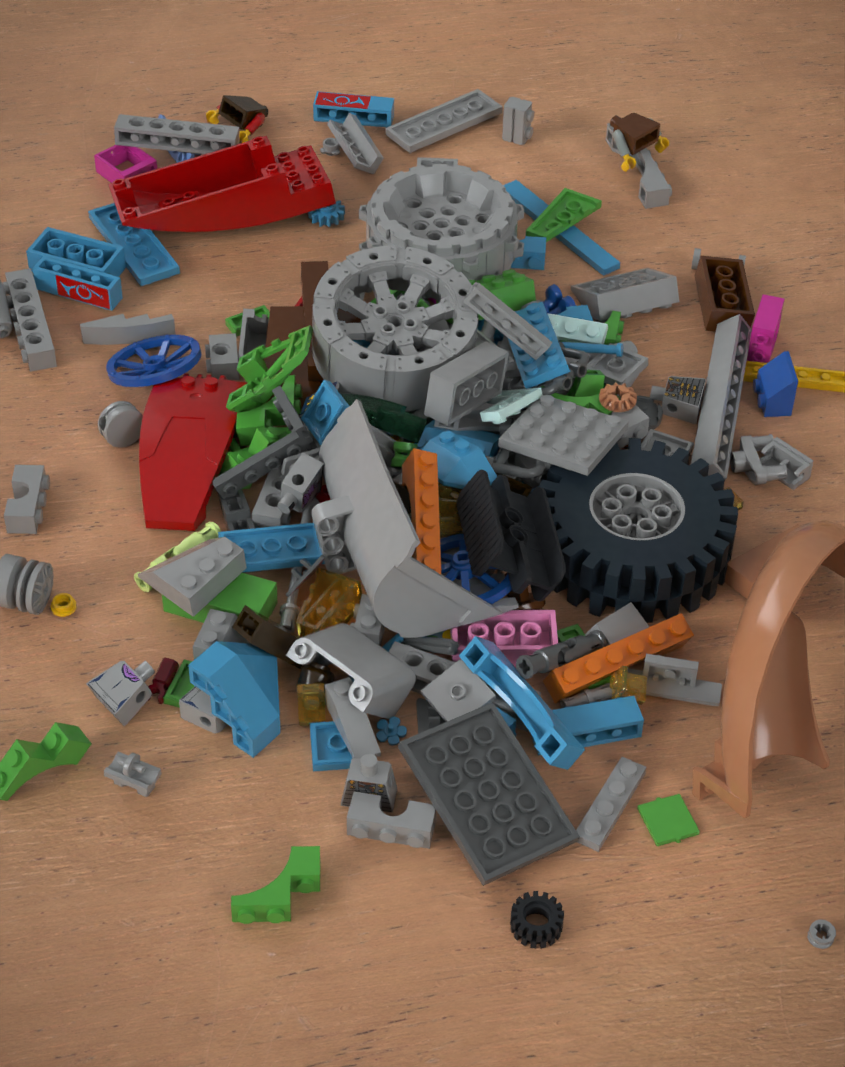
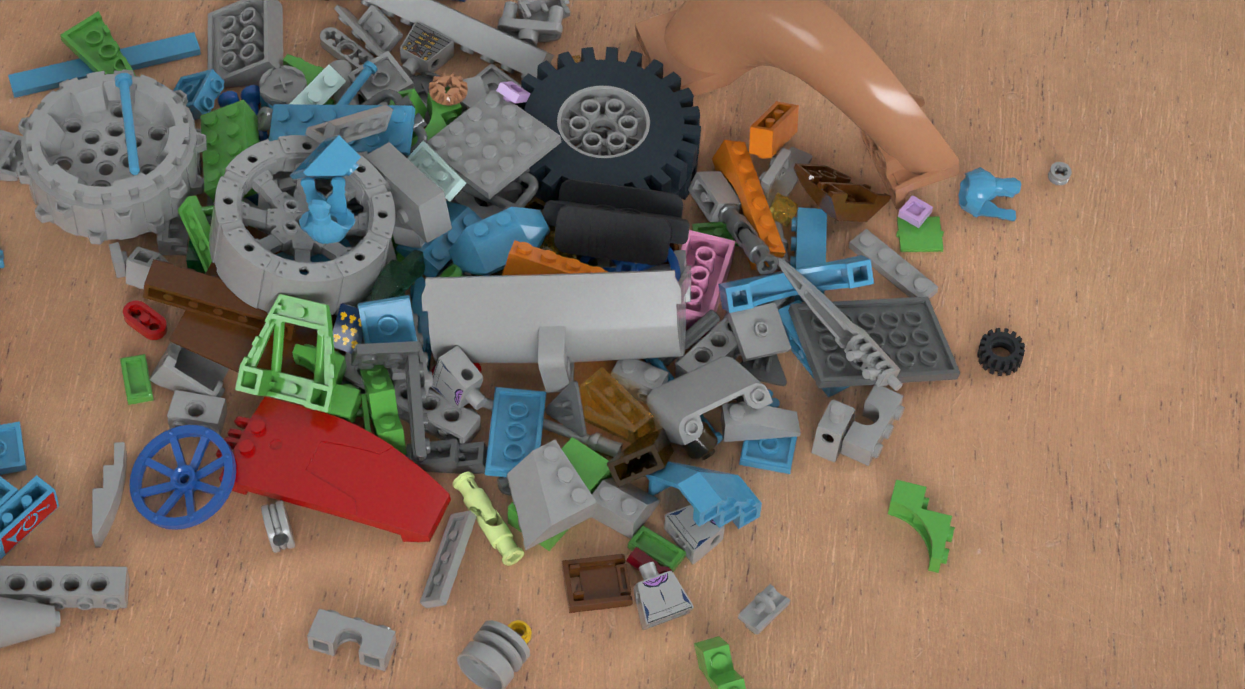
camera: 75 degrees left, 10 degrees up
(137, 541) = (448, 559): none -> light grey plate
(137, 649) = (602, 581): none -> reddish brown container
(311, 703) = (725, 453): clear yellow bracket -> none
(391, 316) = (324, 212): none -> dark azure piece
(431, 288) = (328, 160): none -> dark azure slope
(465, 762) = (855, 340): none -> light grey piece
(494, 195) = (123, 82): none -> dark azure bar
(549, 275) = (201, 91): none -> dark azure plate
(582, 309) = (282, 85): none -> light grey tile
(628, 431) = (513, 92): none -> lavender plate
(655, 347) = (343, 42): none -> light grey beam
(670, 724) = (838, 195): none -> reddish brown wedge
(681, 360) = (372, 28): none -> light grey bracket
(687, 802) = (915, 211): none -> lavender plate
(706, 645) = (773, 129): none -> orange brick
(737, 853) = (981, 188): none -> dark azure piece

